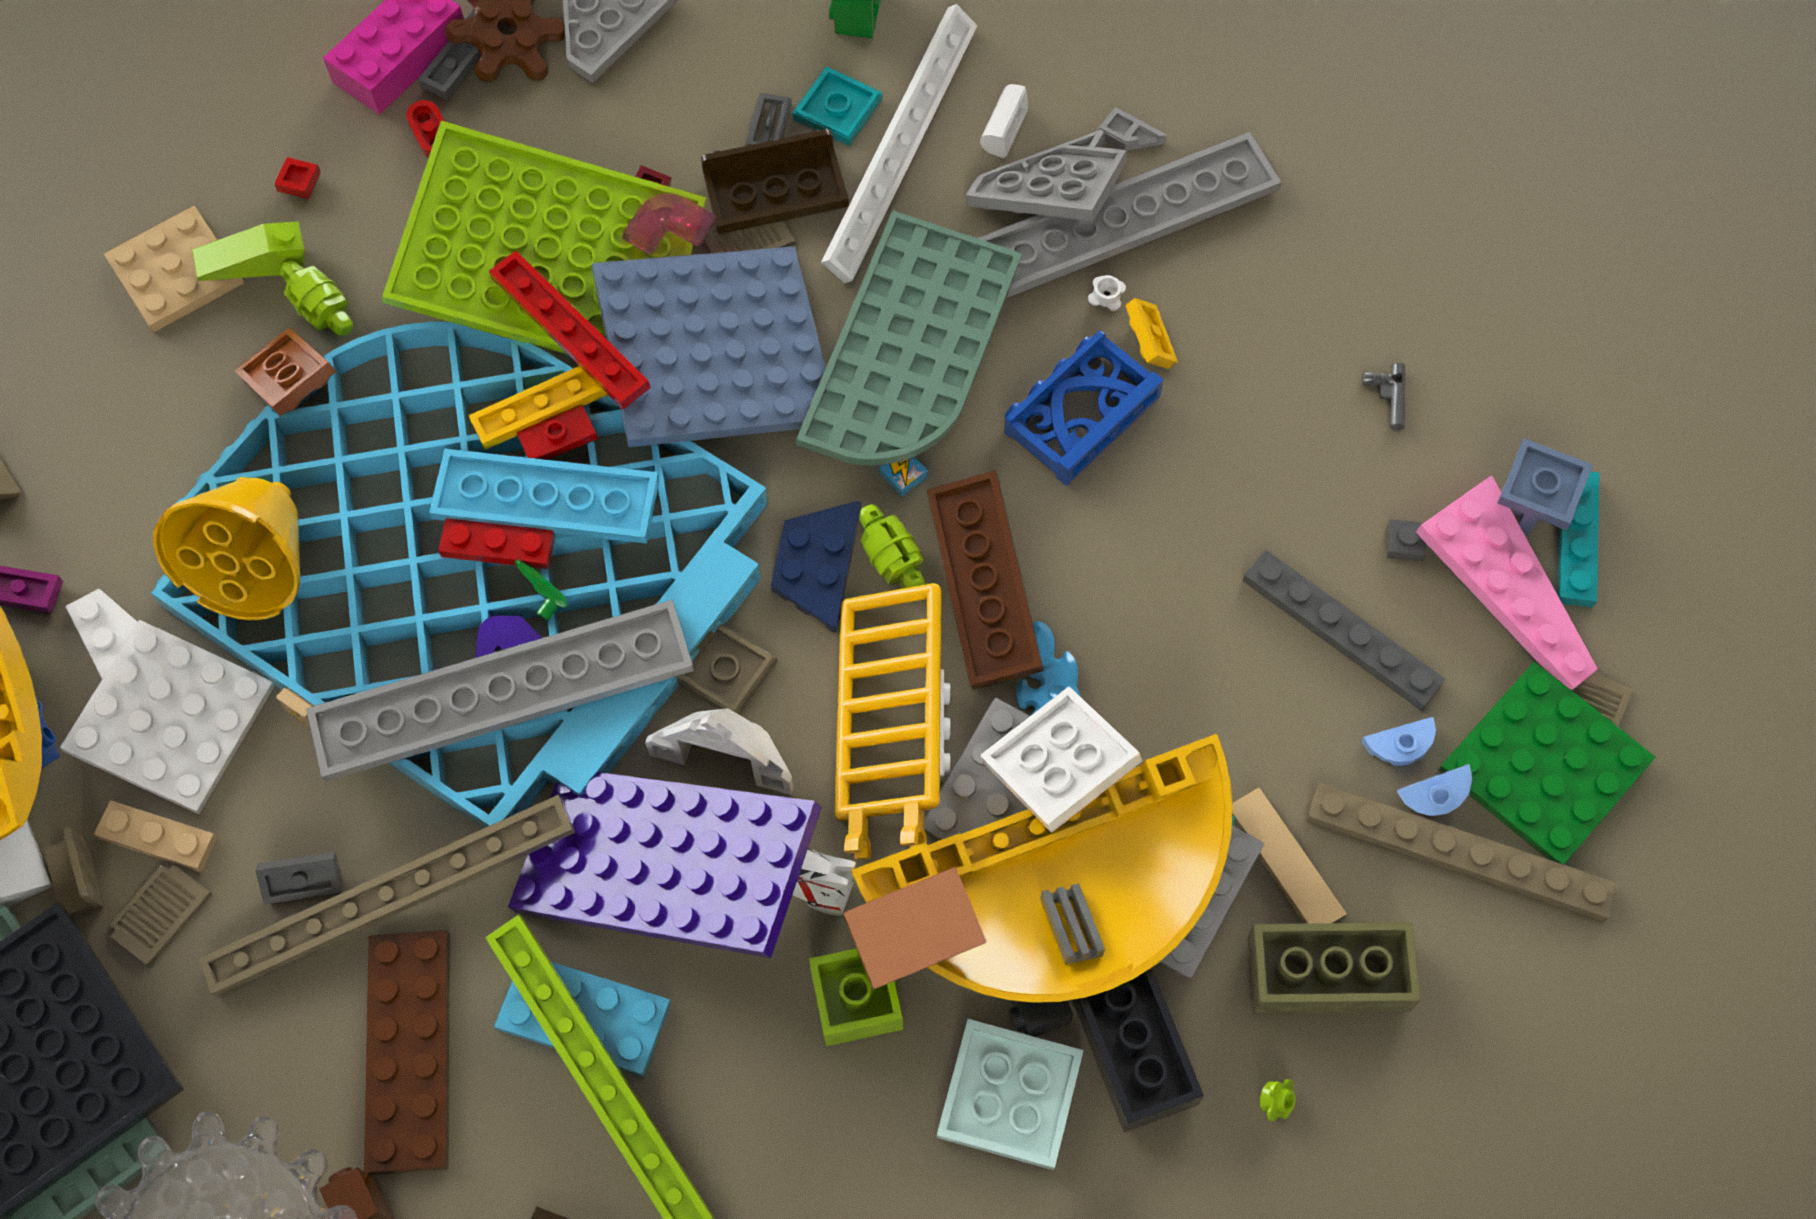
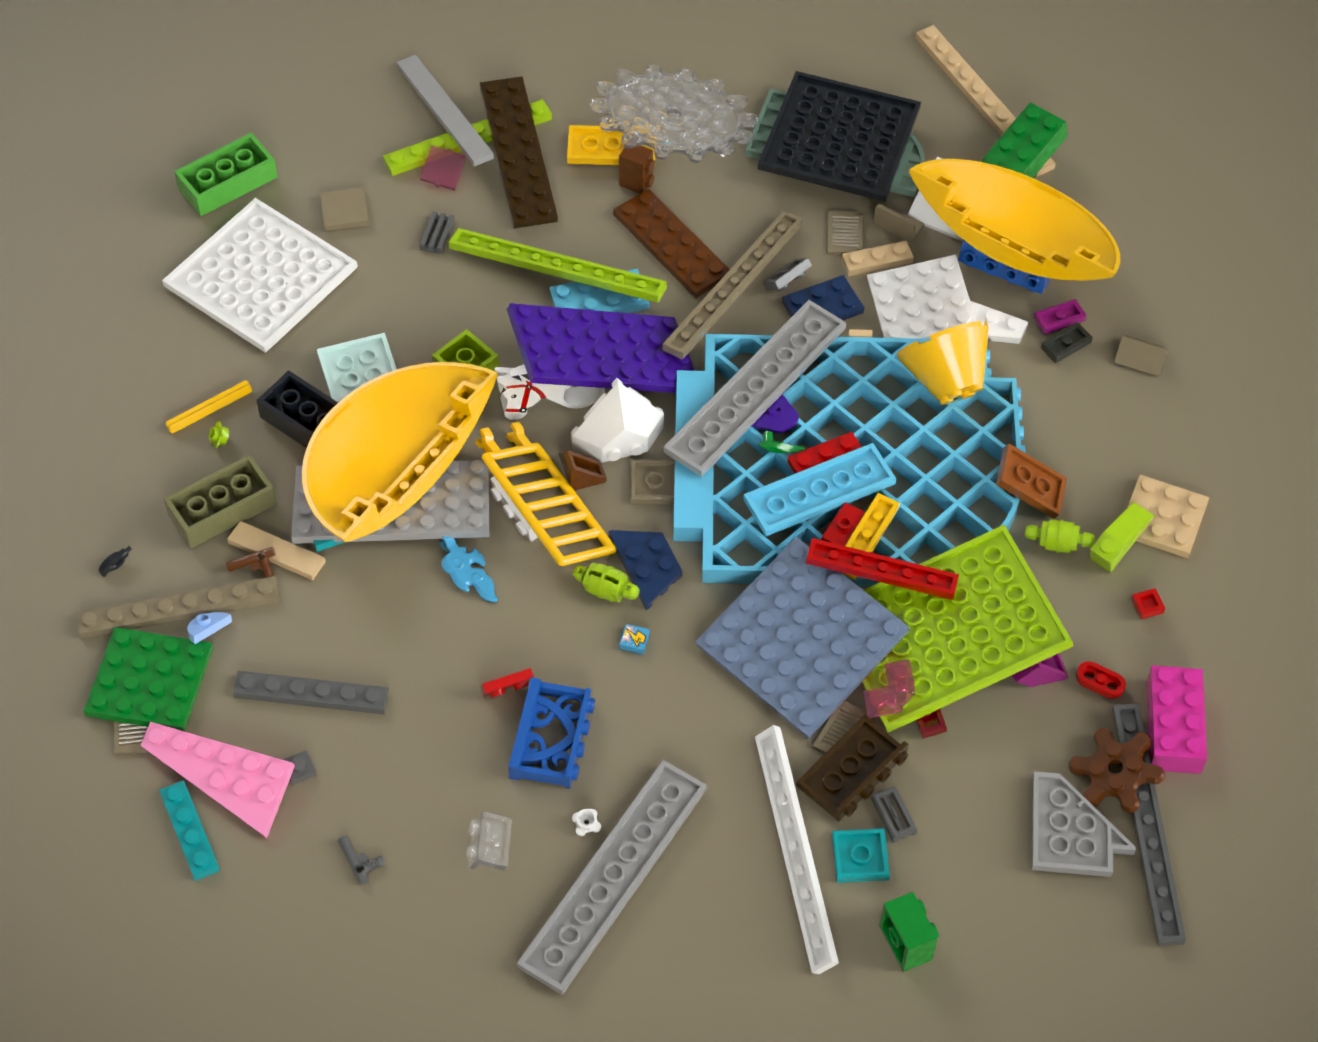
camera: 145 degrees right, 10 degrees down
(50, 546) = (1066, 342): none -> pearl dark grey plate
(292, 806) = (832, 295): none -> dark blue plate
(807, 739) = (582, 470): none -> reddish brown slope
(909, 344) = (682, 701): sand green plate -> none
(914, 928) = (446, 367): nougat tile -> none
(984, 580) = (541, 598): reddish brown plate -> none
(1005, 121) = (737, 904): white brick -> none
(1053, 183) = (670, 871): light grey wing -> none
(1061, 759) = (426, 499): white plate -> none
(1063, 897) = (357, 420): dark grey tile -> none
(1096, 495) = (517, 680): none -> red plate
(1129, 132) = (649, 952): light grey tile -> none
(1151, 333) = (538, 805): yellow plate -> none
(1232, 325) = (489, 841): none -> clear bracket
(1265, 1170) = (208, 406): none -> yellow axle
(1324, 853) = (255, 562): none -> reddish brown hose
(1402, 744) = (241, 646): light blue plate -> none
(1520, 971) = (114, 561): none -> black piece
(1544, 486) = (224, 829): sand blue bracket -> none

